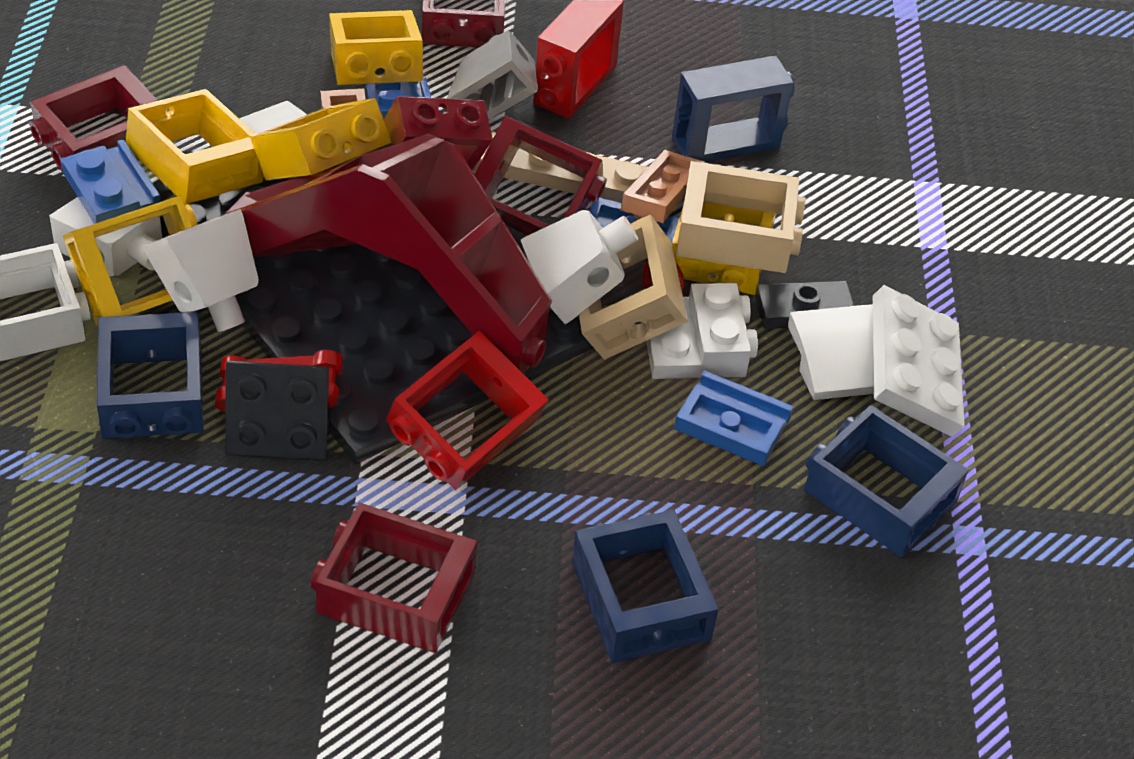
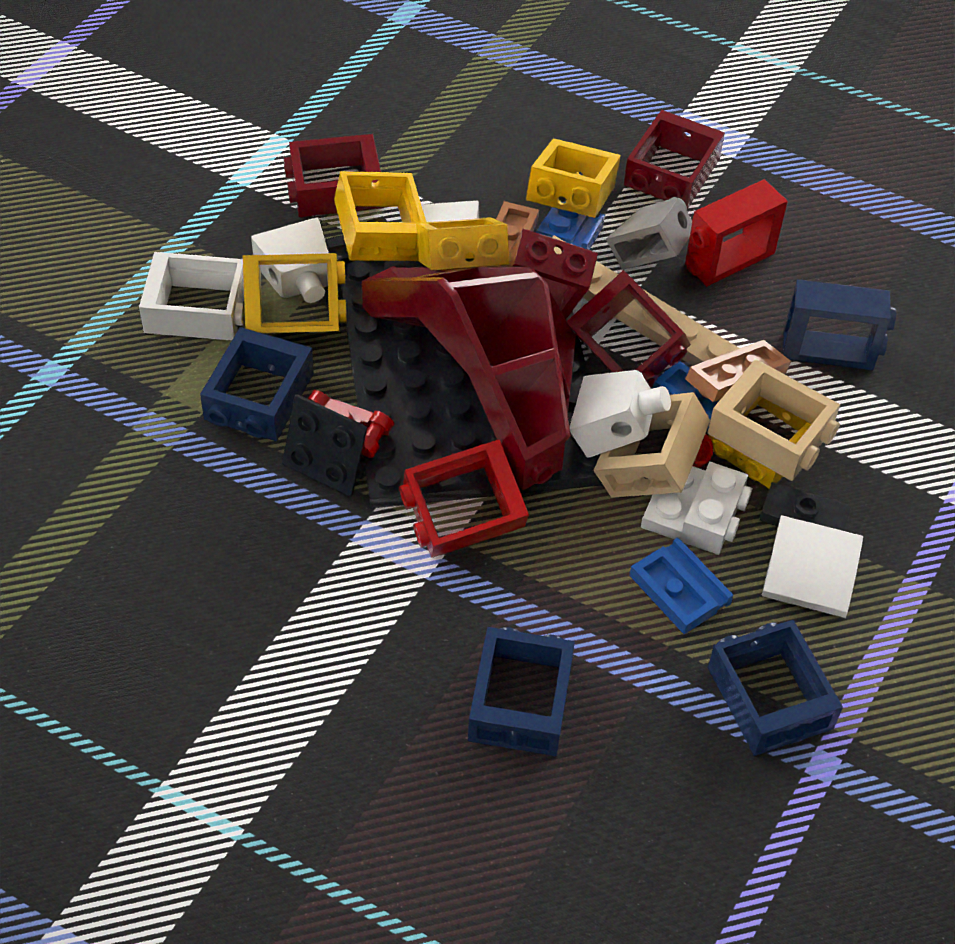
camera: 30 degrees right, 5 degrees up
(109, 181) = (305, 224): plate -> none
(207, 267) = (332, 316): white torso -> none
(408, 540) = (362, 638): dark red window -> none
(917, 361) = (866, 597): white plate -> none

